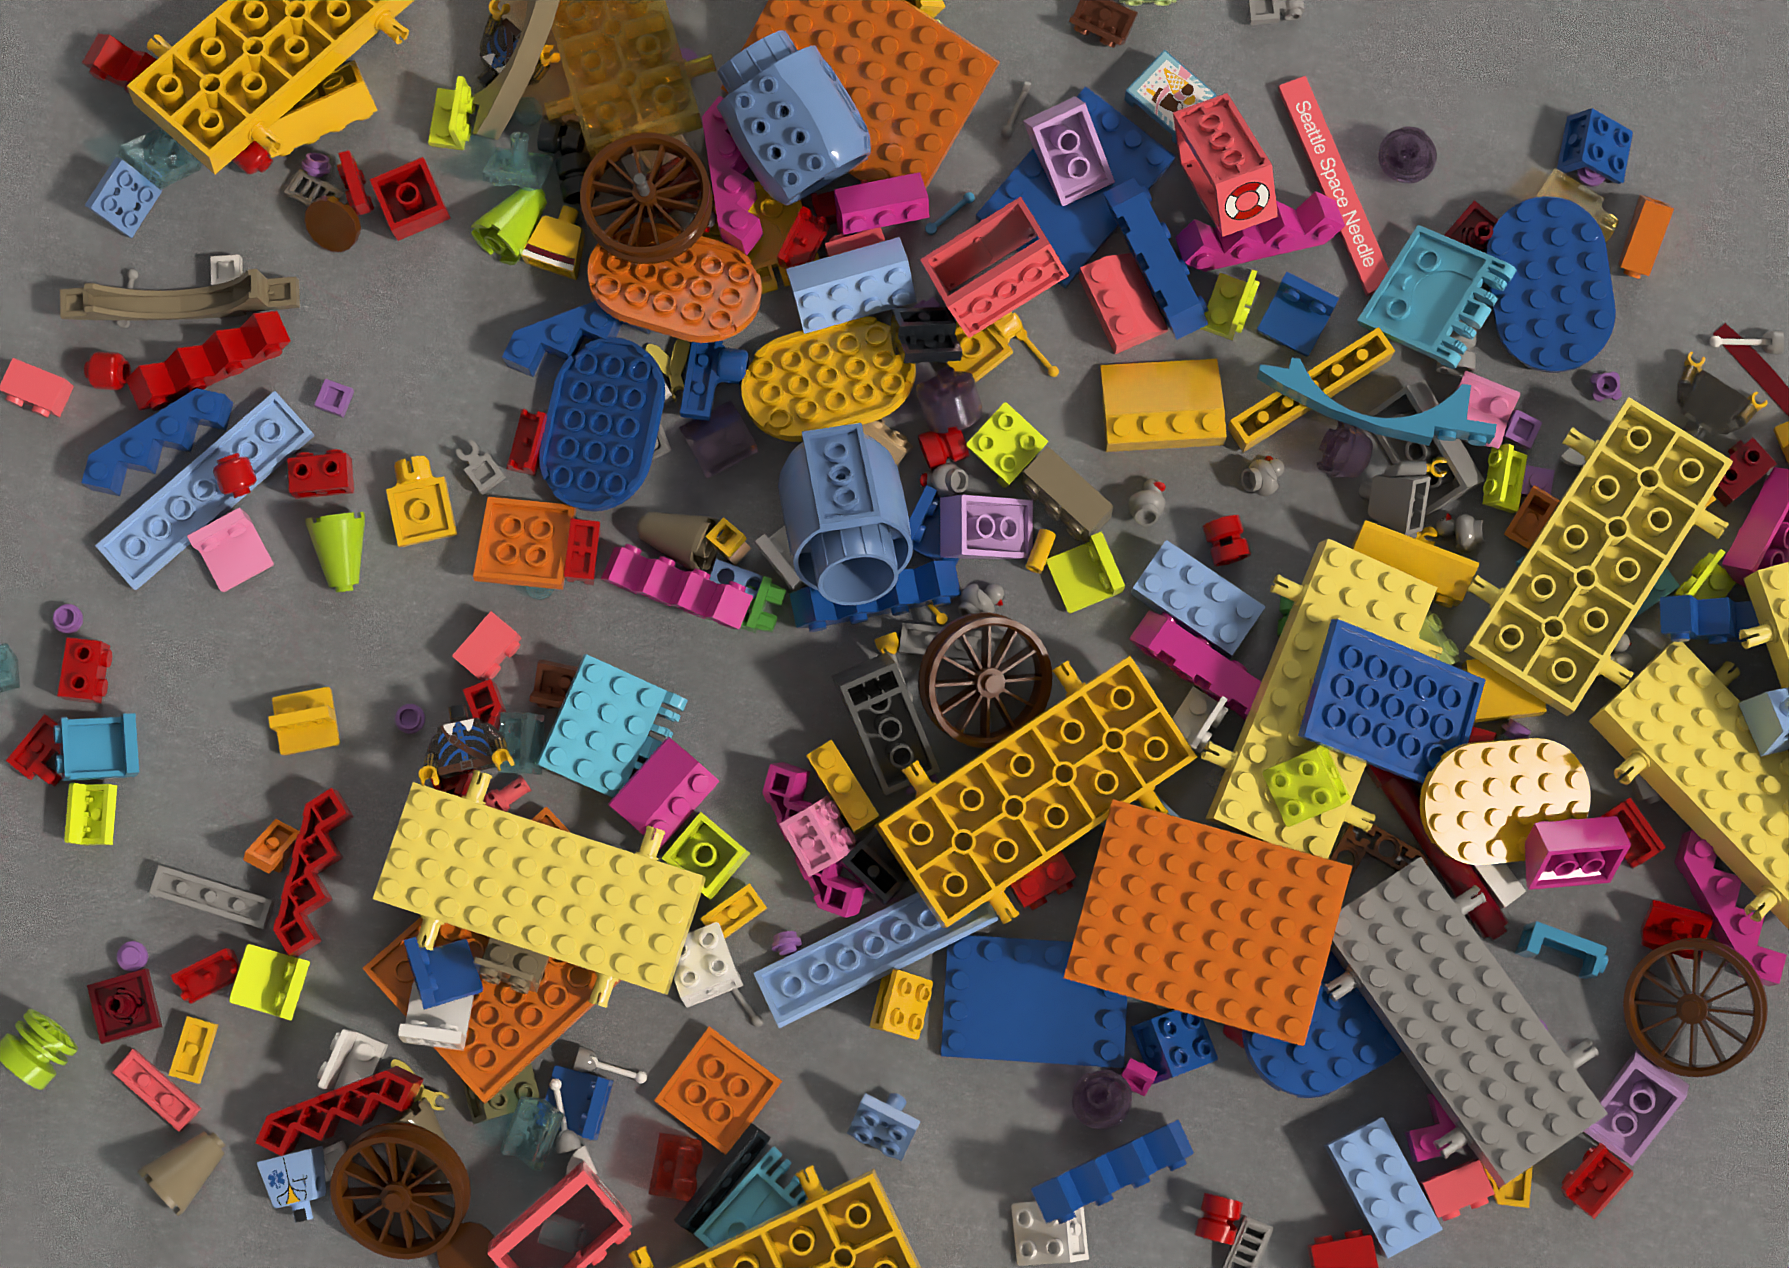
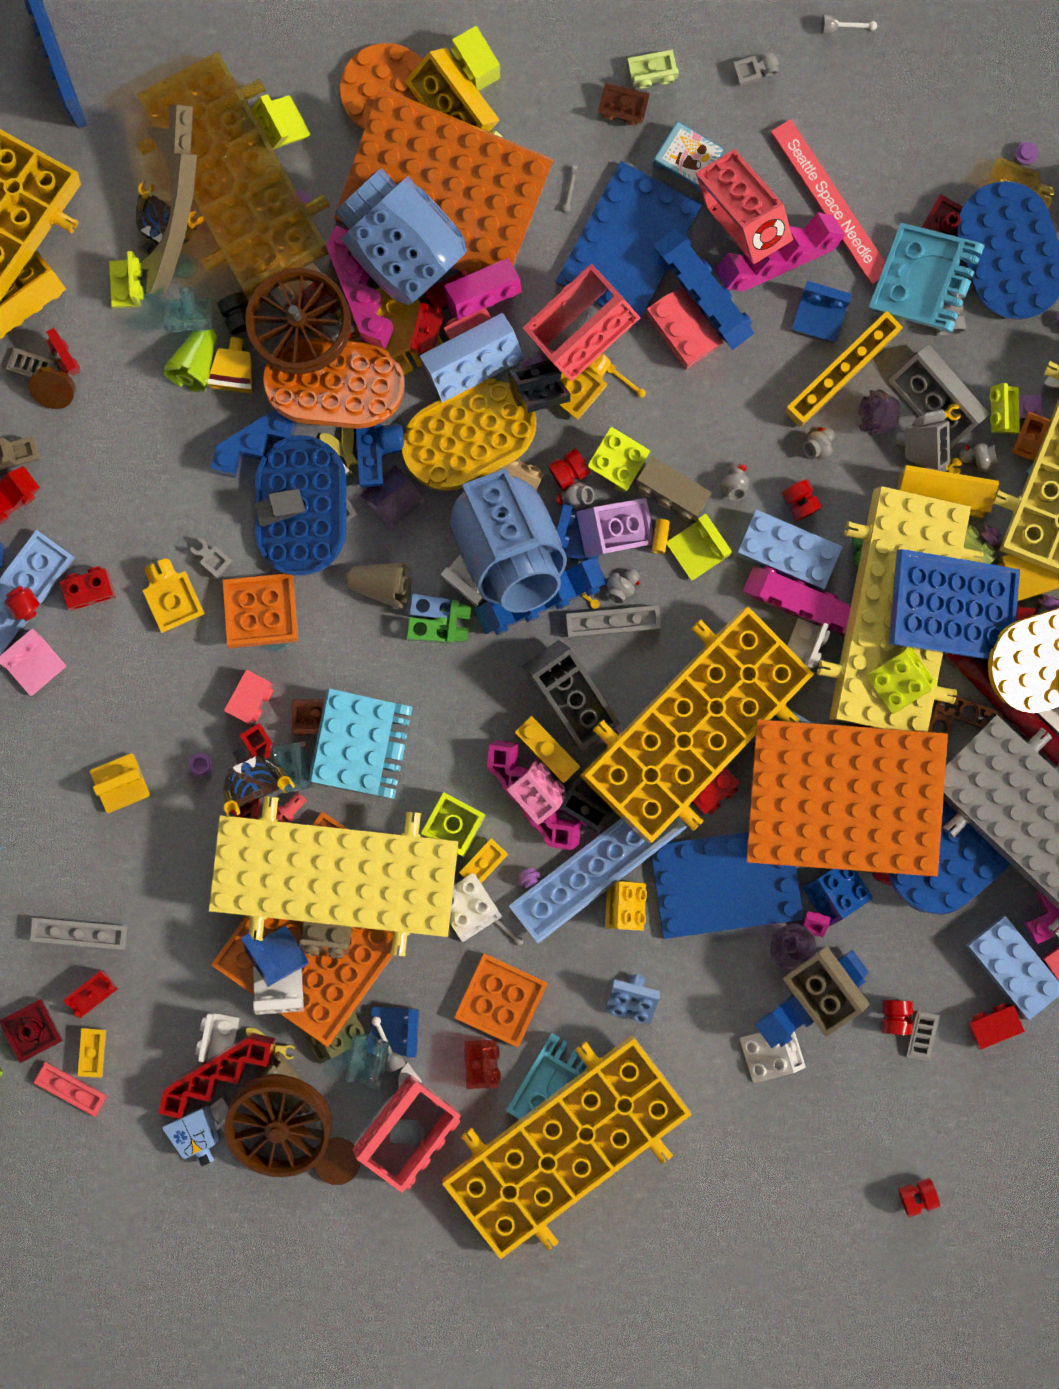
camera: 25 degrees left, 5 degrees up
(132, 956) = (27, 991): medium lavender plate -> none
(184, 1170) = (106, 1145): dark tan cone -> none
(269, 981) = (140, 989): neon yellow bracket -> none
(272, 847) = (117, 885): orange slope -> none
(311, 855) = (149, 886): red brick -> none
(316, 164) = (27, 342): medium lavender plate -> none
(334, 398) = (84, 526): medium lavender plate -> none
(338, 547) = (115, 643): lime cone -> none
(410, 198) = (109, 355): red brick -> none
(527, 442) = (243, 531): red hinge -> none
(552, 138) = (209, 282): black wheel -> none
(575, 420) = (279, 507): none -> dark grey slope
(582, 550) = (307, 608): red hinge -> none
(587, 1061) = (395, 999): hinge -> none
(664, 790) = (411, 781): dark pink slope -> none
(677, 588) = (389, 623): dark pink brick -> none
(722, 1178) = (518, 1065): black tile -> none
(730, 543) = (419, 578): yellow leg -> none
(890, 644) = (559, 632): yellow hinge -> none
(931, 228) = (523, 297): dark azure hinge -> none
(949, 400) = (567, 433): brick -> none
(985, 678) = (639, 646): reddish brown wheel -> none
(1069, 150) = (619, 216): lavender slope -> none
(1131, 1164) = (826, 991): none -> dark tan brick
(1162, 405) = (731, 403): yellow slope -> none
(1227, 305) = (767, 313): neon yellow bracket -> none
(1407, 155) = (882, 169): clear purple cone -> none
(1445, 420) = (953, 376): dark azure slope -> none
(1458, 631) = (991, 535): none -> medium lavender plate
(1490, 403) = (976, 359): bright pink bracket -> none
(1522, 429) = (1010, 368): medium lavender plate -> none
(1595, 143) = (1025, 131): blue bracket -> none

